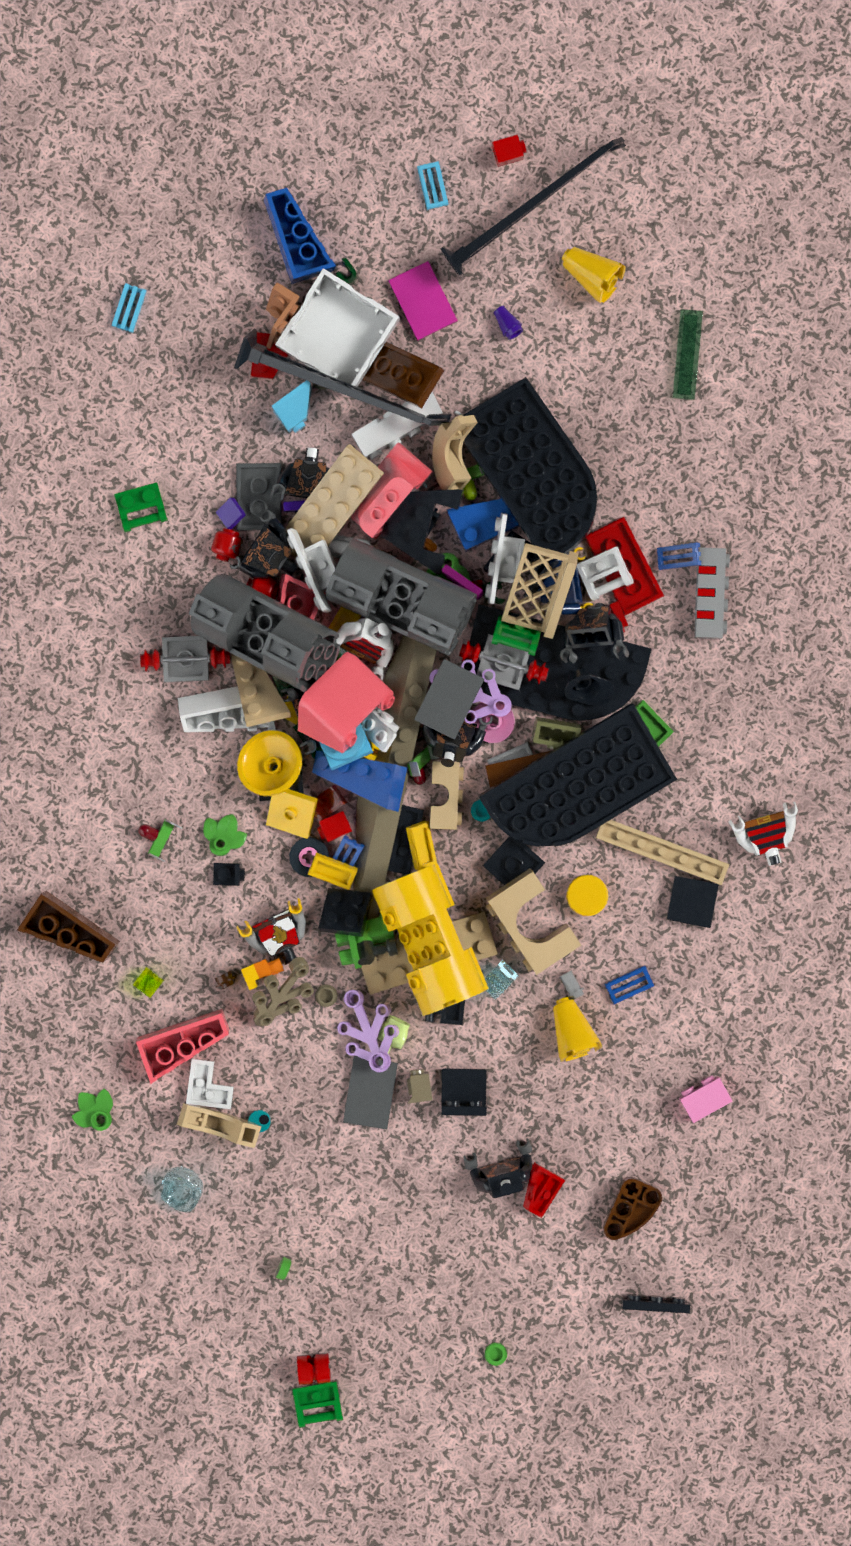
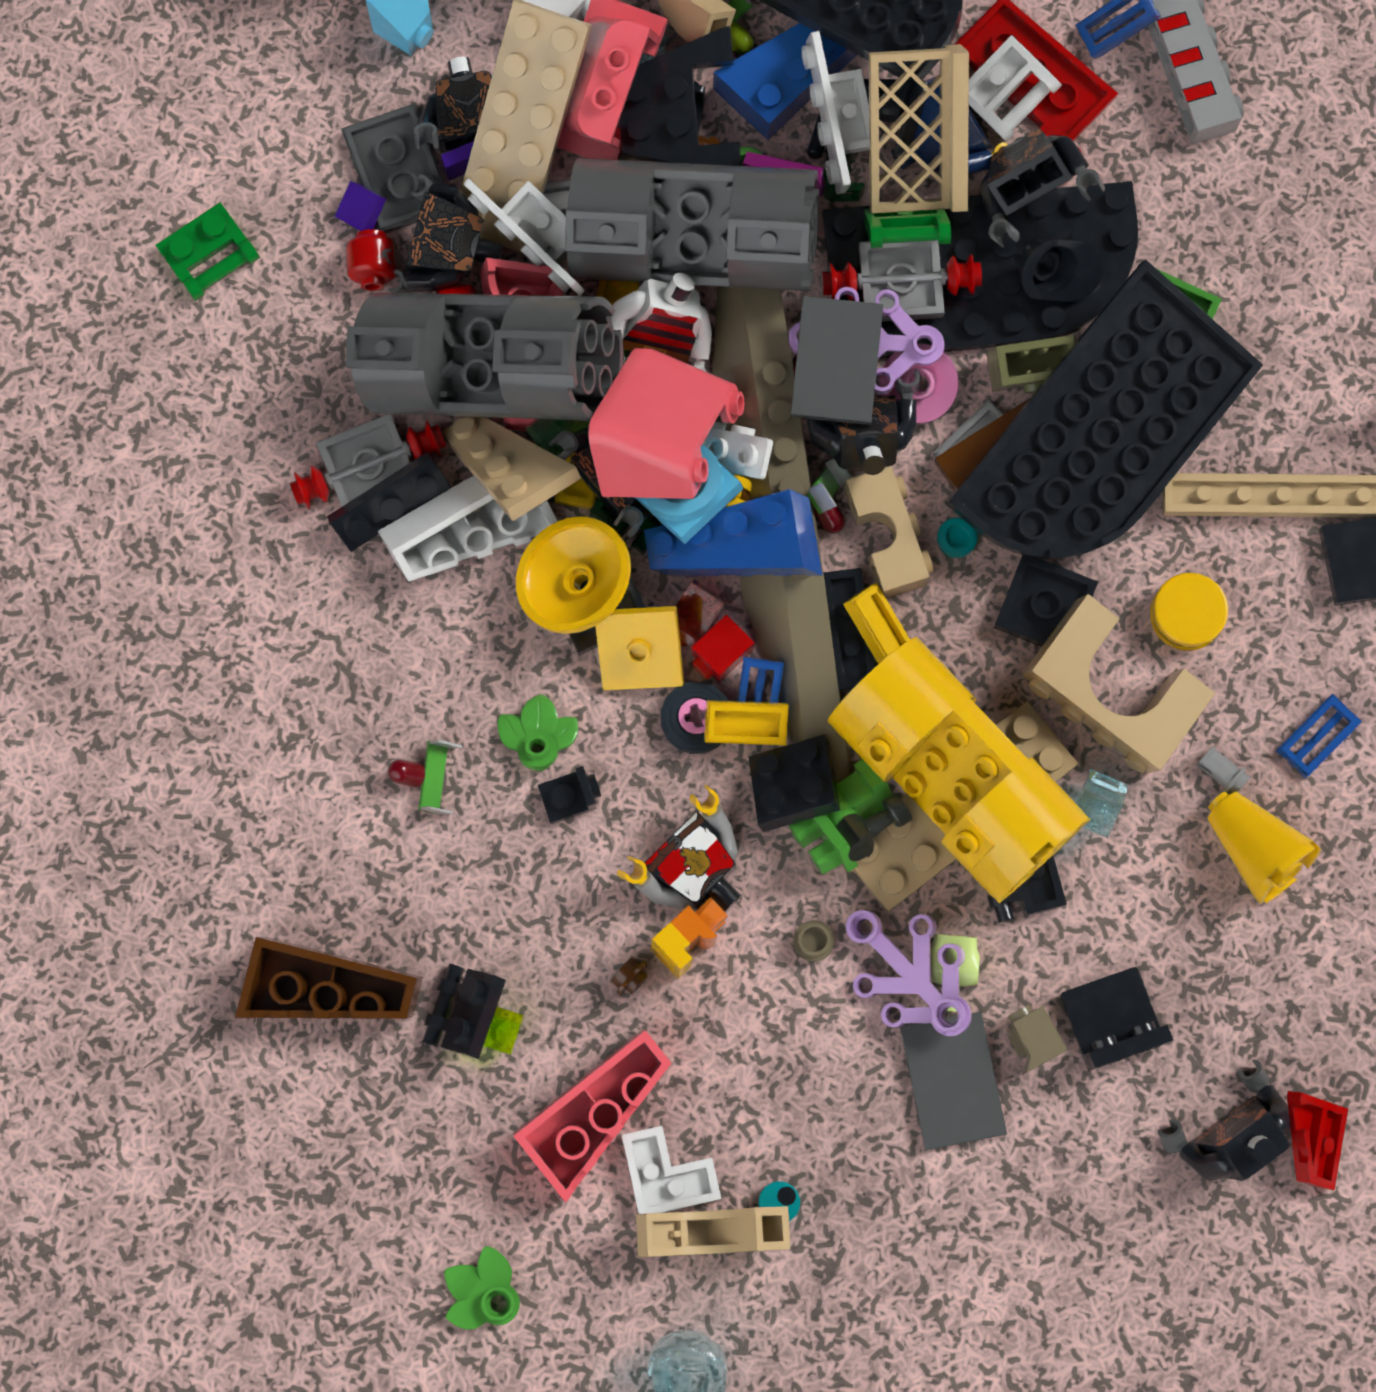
camera: 20 degrees left, 10 degrees down
(137, 971) = (471, 1014): none -> black plate
(189, 684) = (388, 501): none -> black plate
(265, 1014) = (722, 1008): dark tan plant -> none

